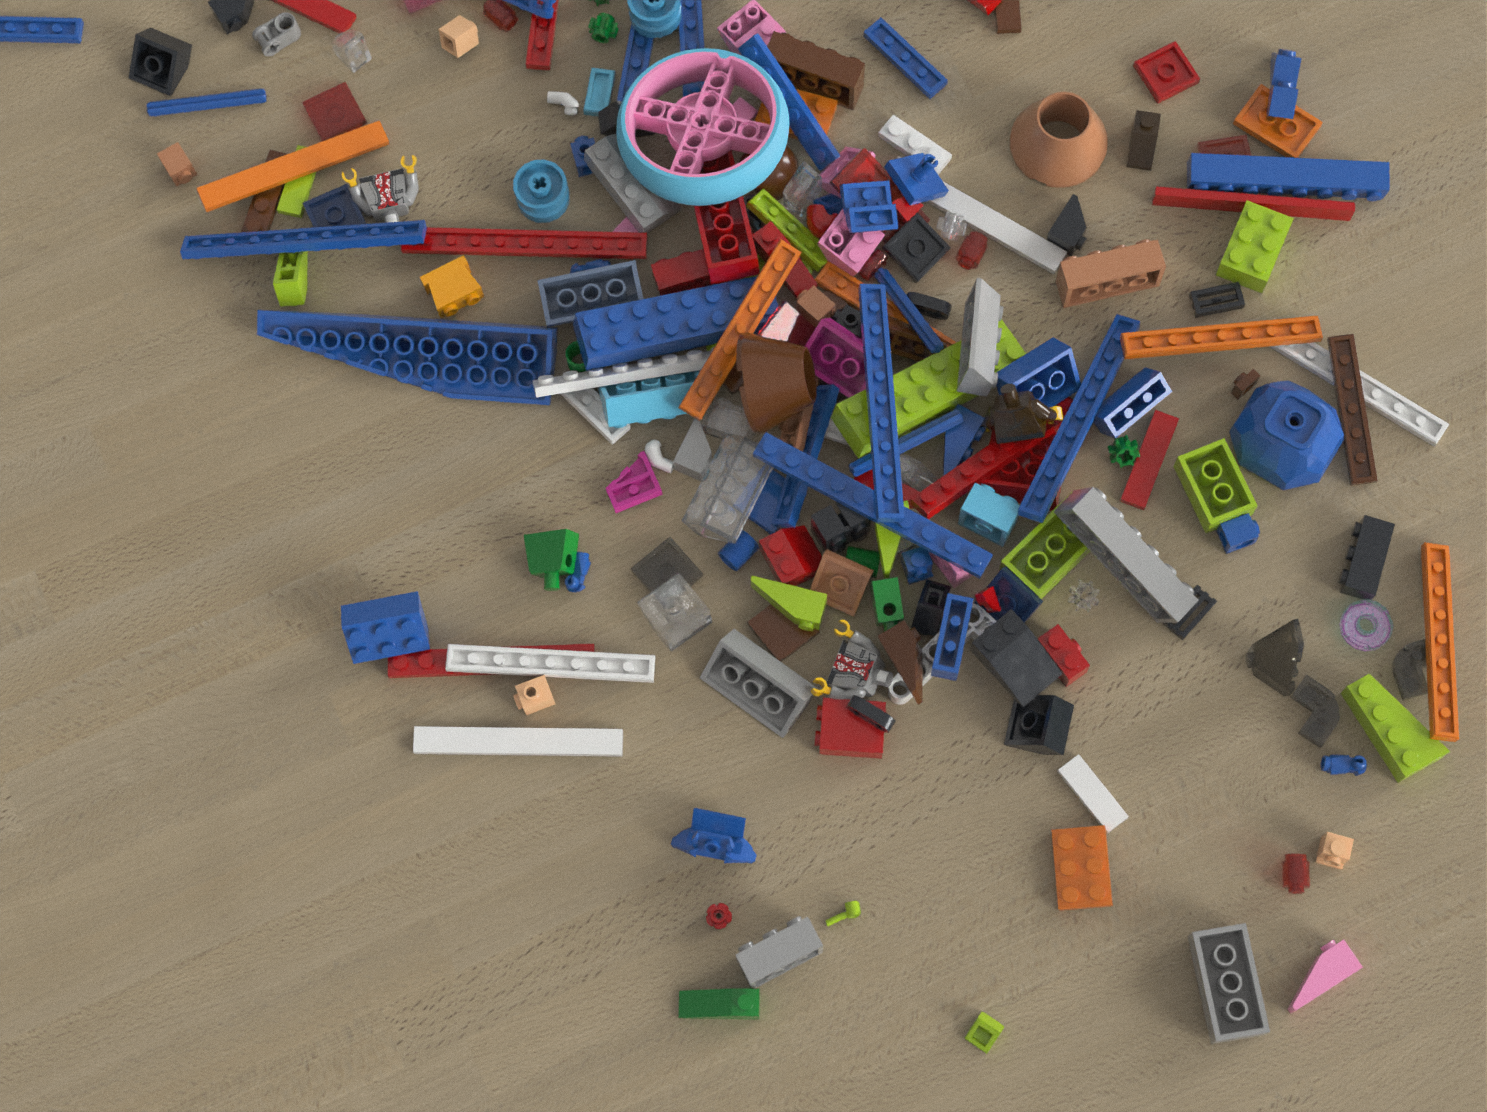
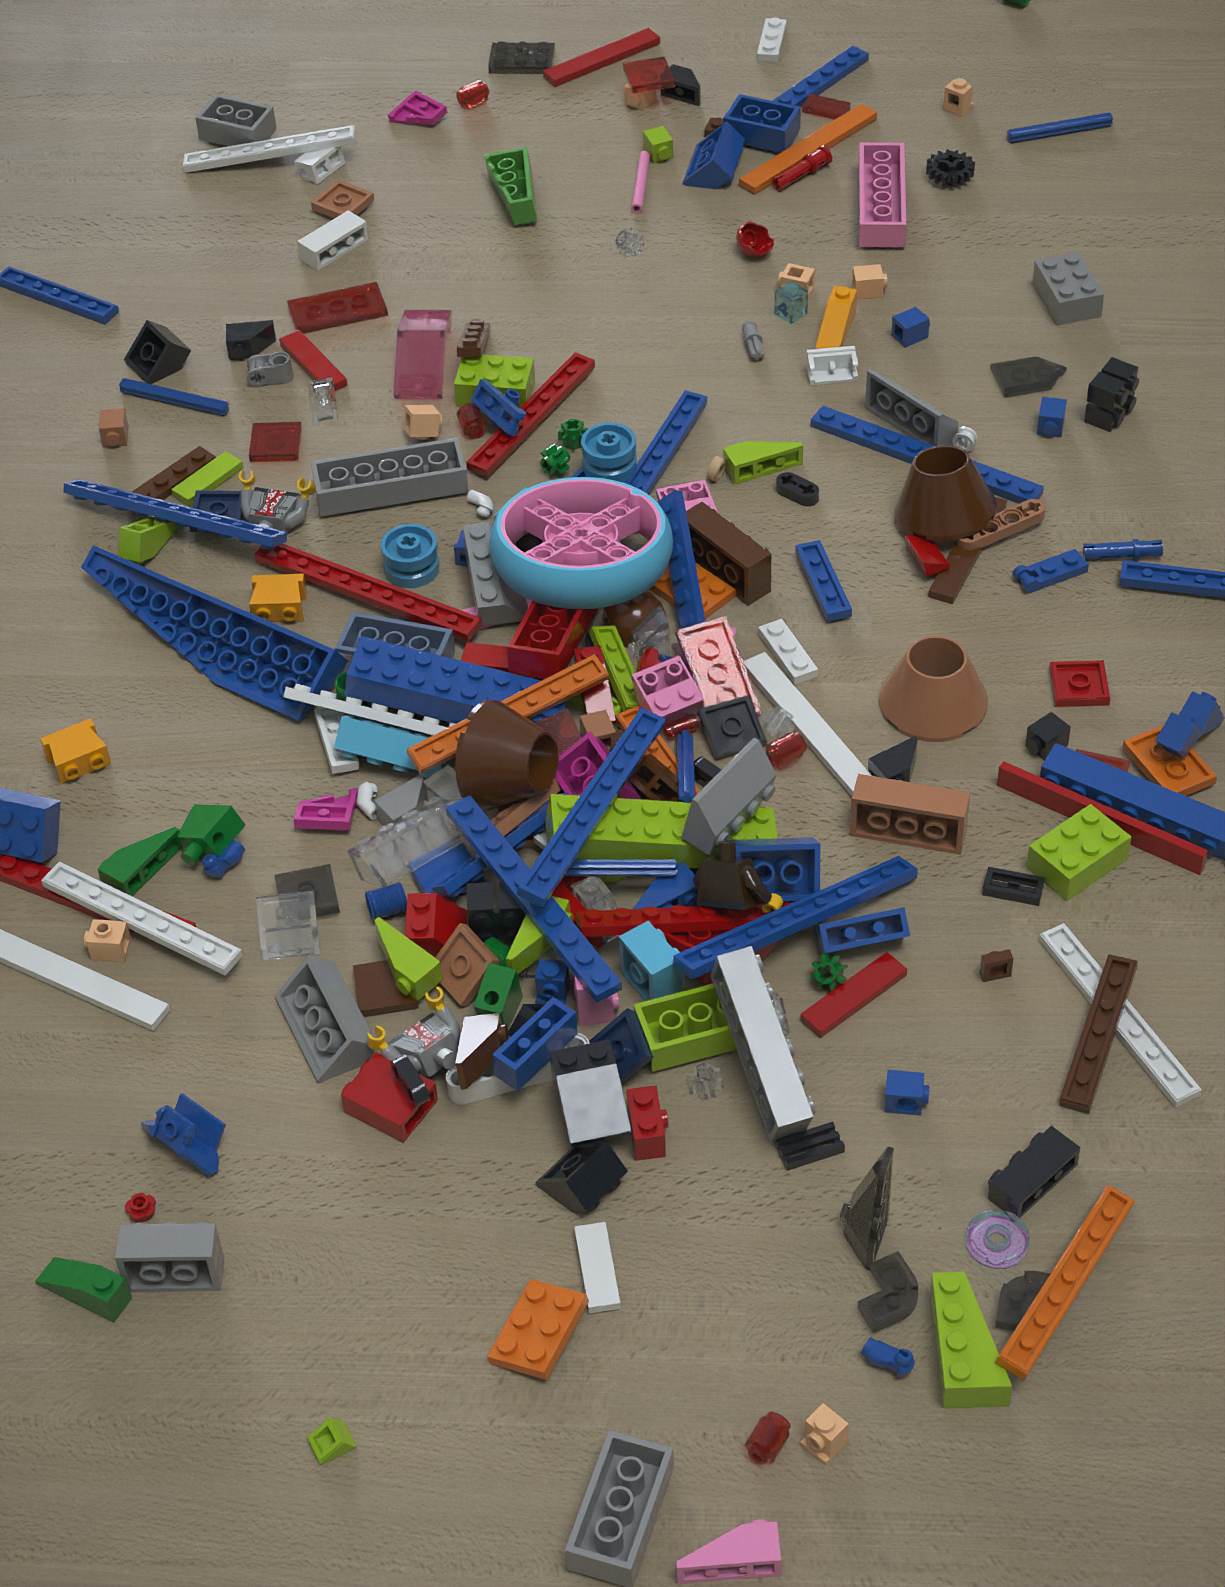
camera: 25 degrees right, 25 degrees down
(292, 166) = (207, 460): orange tile -> none
(382, 525) = (76, 750): none -> light orange hips
(470, 112) = (389, 476): none -> light grey brick
(507, 614) = (137, 863): none -> green slope
(852, 911) = (275, 1263): lime hand -> none
(868, 206) = (699, 664): blue slope -> none
(905, 210) = (740, 685): red tile -> none
(917, 178) = (766, 666): blue tile -> none
(989, 599) = (597, 1030): red tile -> none
(1143, 140) = (1012, 730): dark brown slope -> none
(1172, 141) = (1045, 733): none -> black brick
(1214, 484) = (905, 1033): lime brick -> none
(1221, 337) = (994, 912): orange tile -> none
(1275, 448) = (1009, 1038): blue rock -> none

